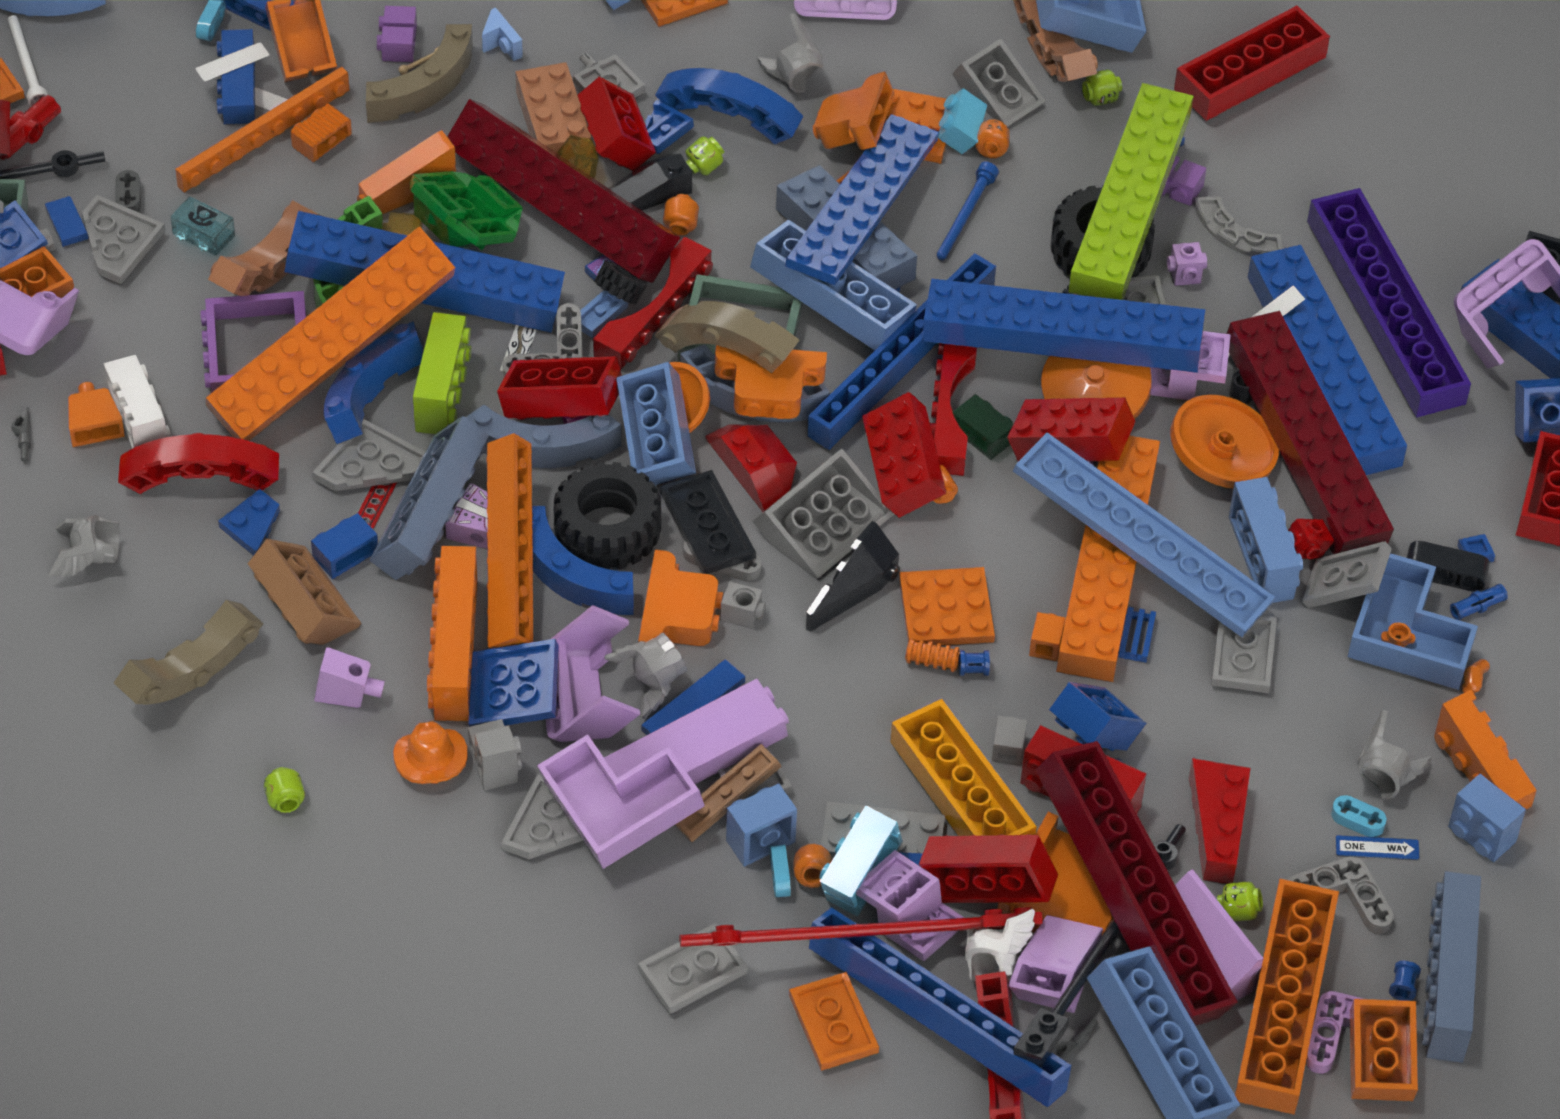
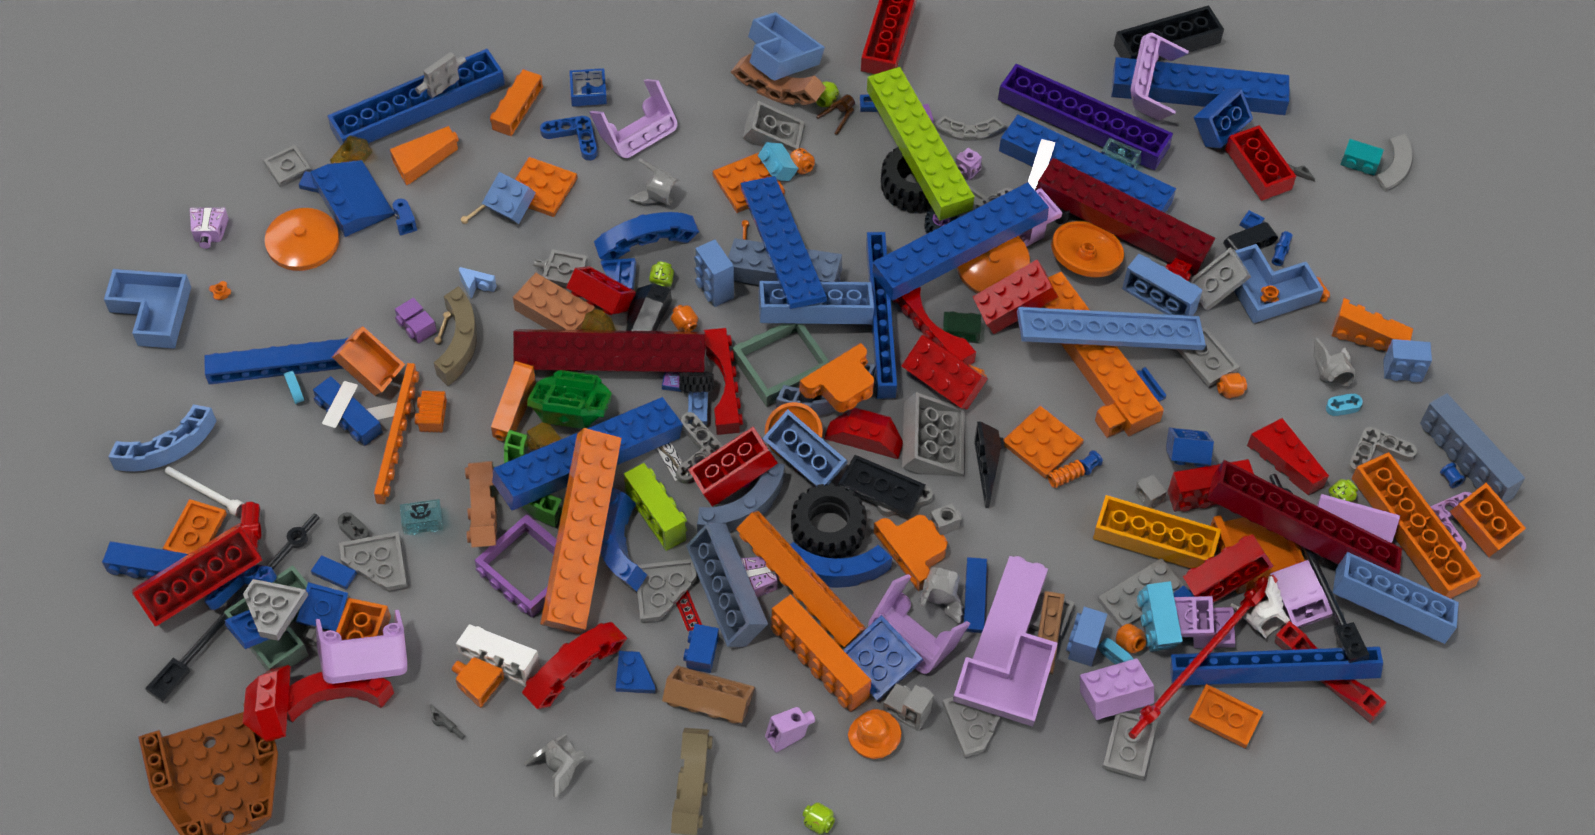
camera: 40 degrees left, 5 degrees up
(728, 327) = (798, 367): dark tan brick -> none
(734, 896) = (1116, 689): none -> lavender brick
(752, 184) = (714, 273): none -> medium blue brick
(855, 114) = (723, 197): orange brick -> none
(985, 175) = (817, 184): blue piece -> none
(1112, 110) = (844, 105): none -> reddish brown plant
(1239, 700) = (1232, 385): none -> orange head
(1377, 847) = (1366, 414): sticker -> none
(1384, 370) = (1122, 153): none -> clear light blue brick

